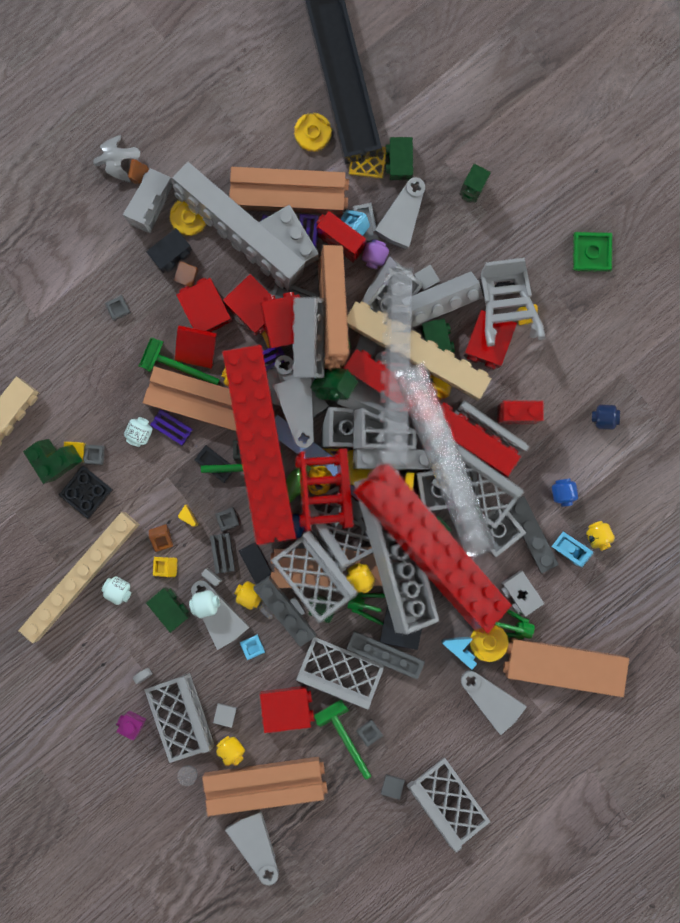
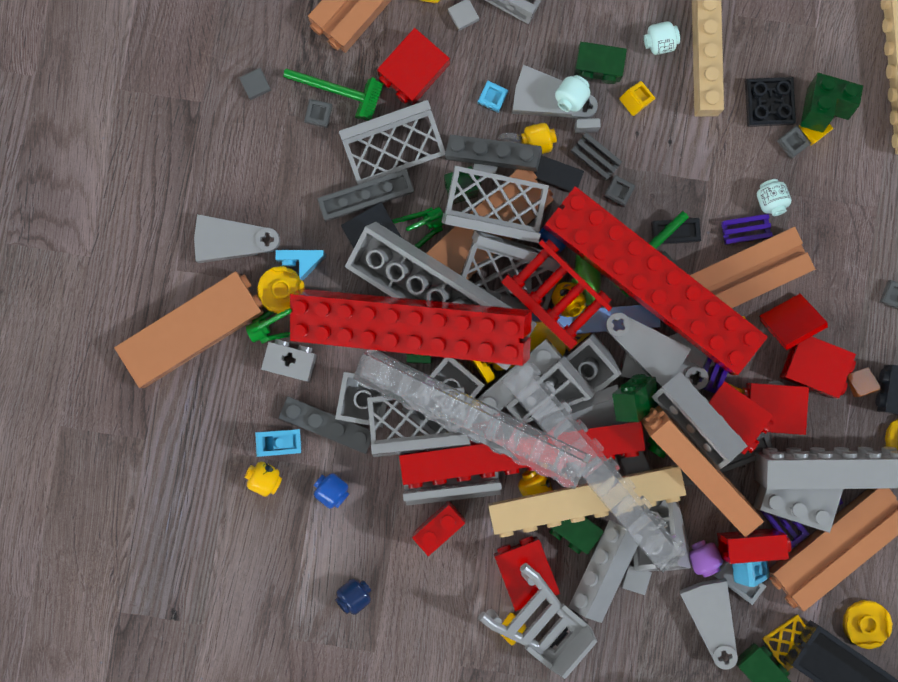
camera: 135 degrees right, 0 degrees up
(152, 354) = (825, 279): green piece -> none
(160, 538) = (664, 120): dark orange slope -> none
(187, 516) = (658, 161): yellow slope -> none
(360, 577) = (451, 241): yellow head -> none
(434, 813) = (195, 92): light grey fence -> none

